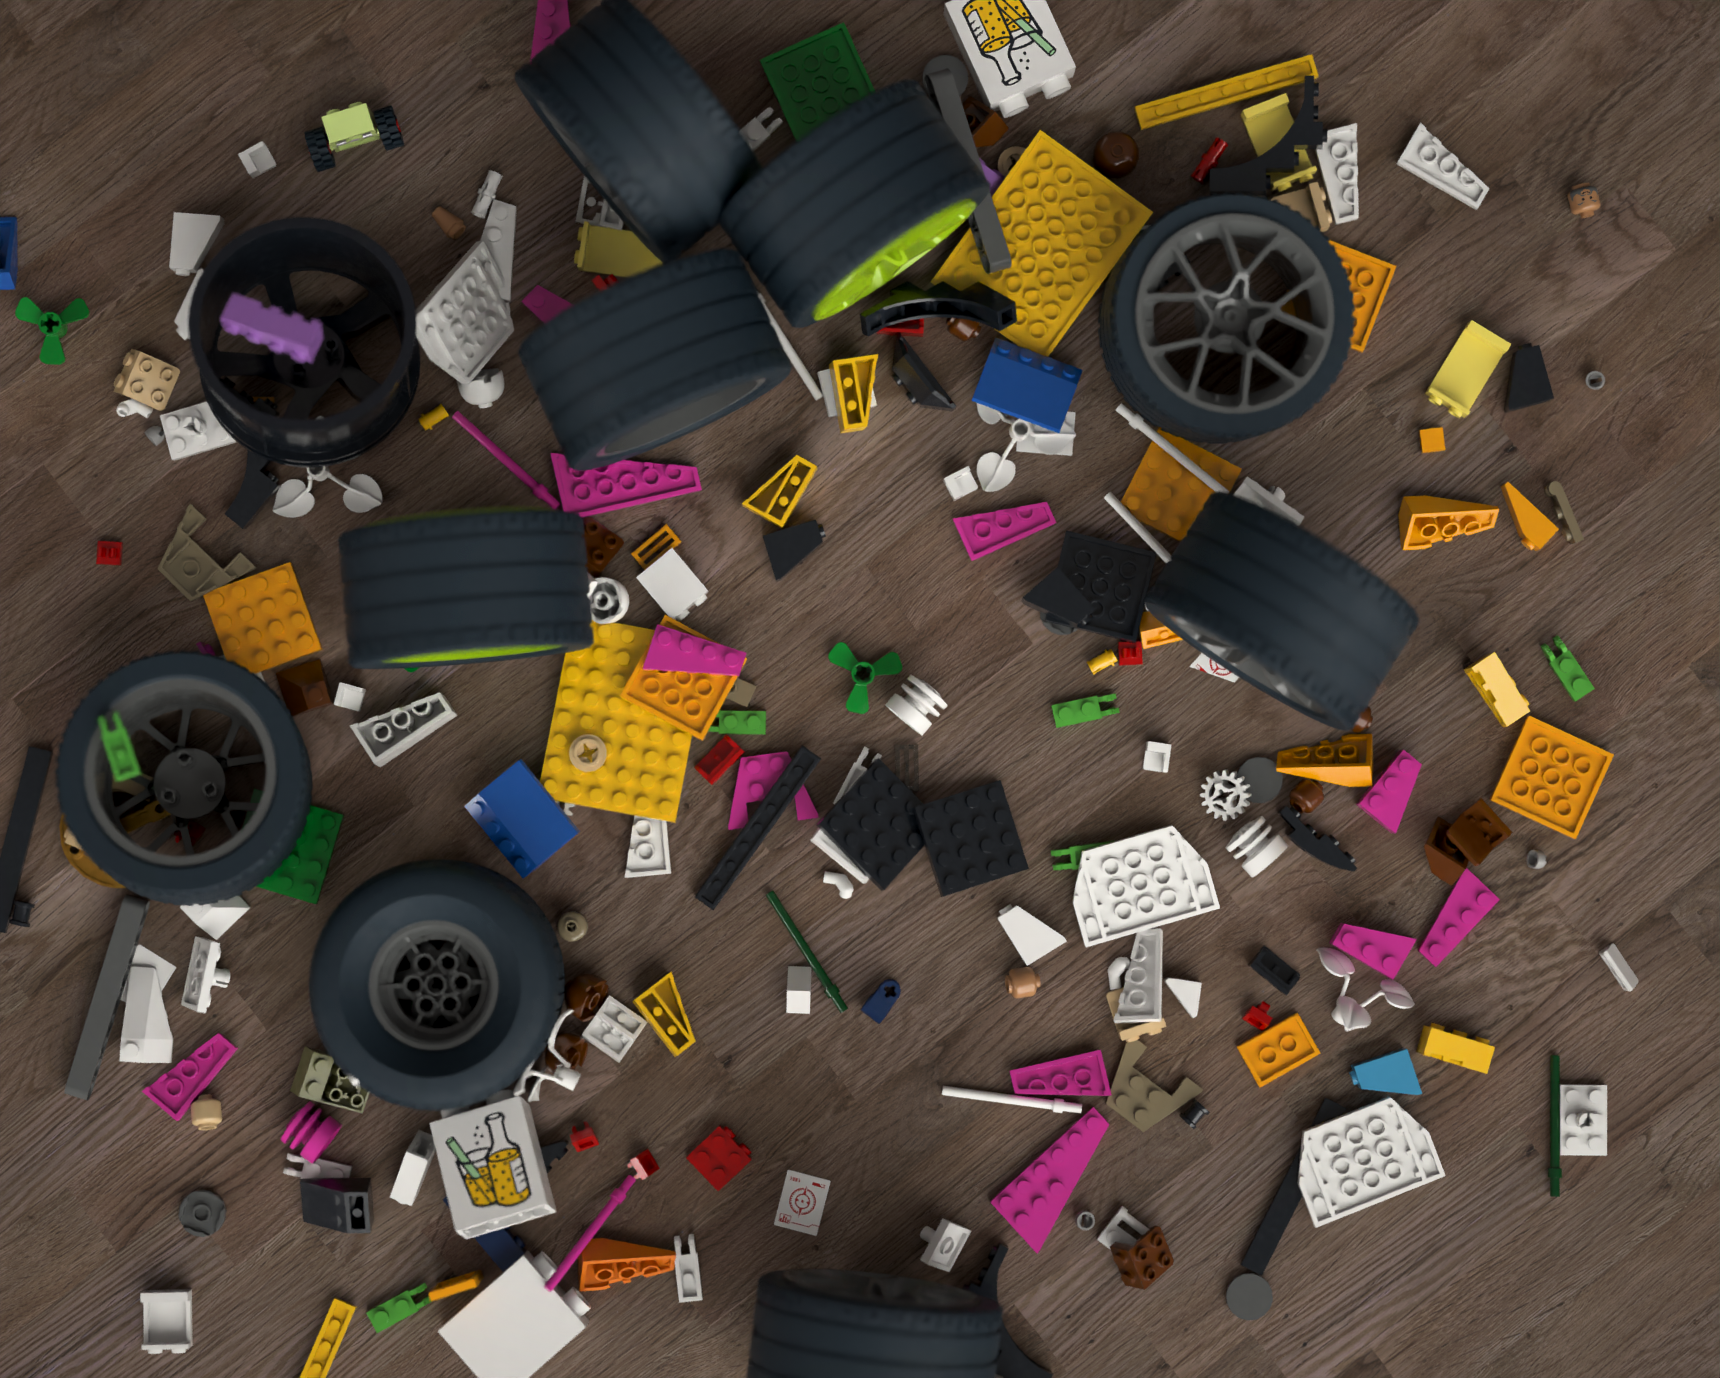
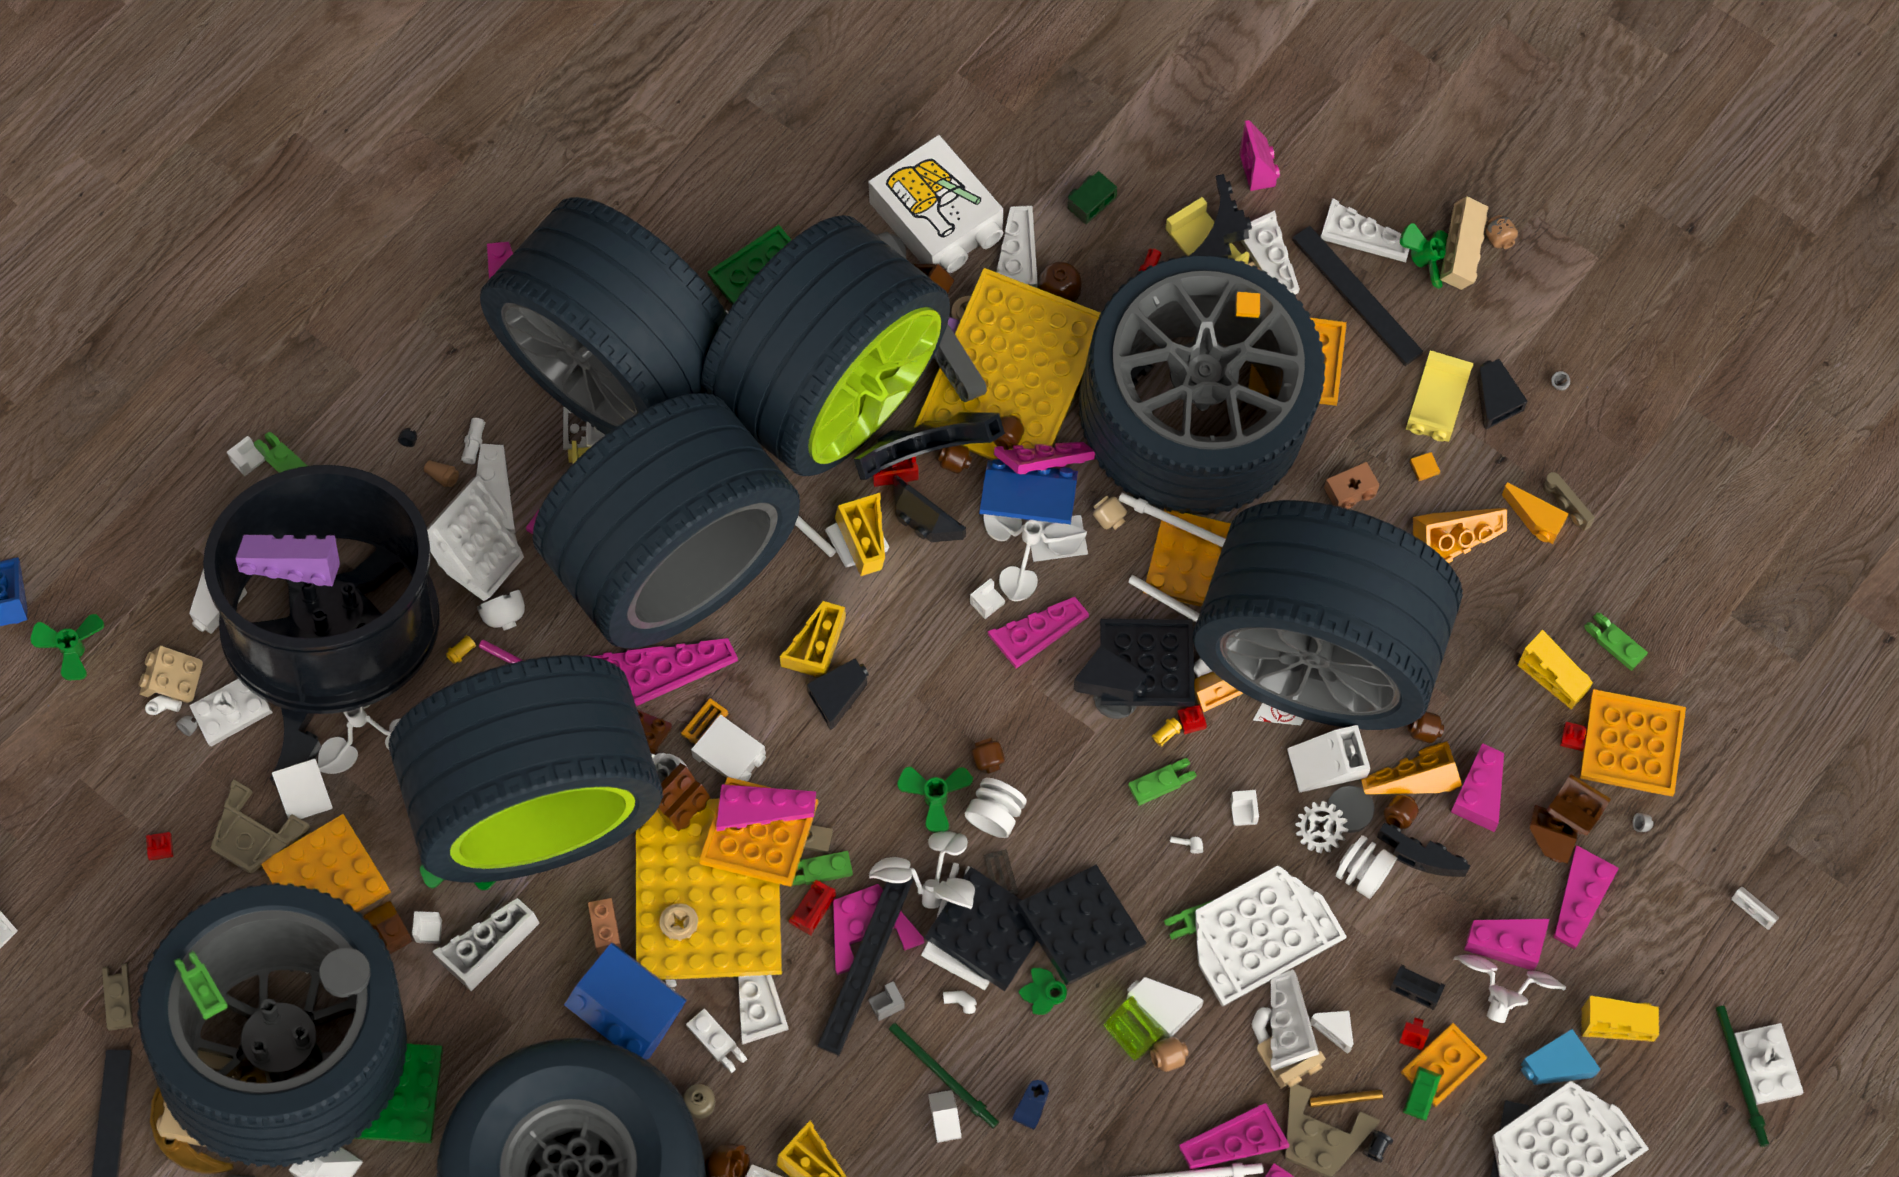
camera: 10 degrees left, 20 degrees down
(47, 696) = (117, 999): none -> dark tan hinge
(192, 240) = (190, 538): white slope -> none
(254, 531) = (302, 789): none -> white sticker
(257, 761) = (345, 972): none -> dark grey tile
(294, 172) = (280, 456): none -> bright green hinge
(351, 129) = (332, 408): brick -> none
(422, 175) = (407, 437): none -> black hinge
(518, 735) = (604, 924): none -> nougat brick
(600, 866) = (715, 1039): none -> white hinge
(615, 629) = (681, 798): none -> reddish brown plate
(768, 869) = (887, 1002): none -> light grey panel
(857, 787) = (954, 890): none -> white plant
(916, 891) = (1039, 991): none -> green plate
(922, 647) = (988, 755): none -> reddish brown head
(989, 953) = (1128, 1033): none -> clear neon green plate
(1026, 314) = (1013, 432): none -> reddish brown head
(1051, 350) = (1044, 456): none -> dark pink wing
(1080, 114) = (1018, 247): none -> white wing
(1100, 781) = (1195, 843): none -> white hand
(1103, 420) = (1109, 513): none -> tan head
(1172, 65) = (1091, 197): none -> dark green brick
(1177, 1060) = (1346, 1098): none -> pearl gold bar
(1225, 92) = (1144, 212): yellow plate -> none
(1249, 1074) = (1422, 1093): none -> green tile
(1250, 728) = (1329, 759): none -> white slope
(1289, 264) = (1248, 304): none -> light orange tile
(1354, 62) = (1257, 159): none -> dark pink slope
(1363, 439) = (1357, 478): none -> nougat brick
(1416, 236) = (1357, 296): none -> black tile
(1496, 756) = (1574, 736): none -> red tile
(1502, 208) = (1425, 251): none -> green piece
(1541, 205) = (1464, 243): none -> tan brick

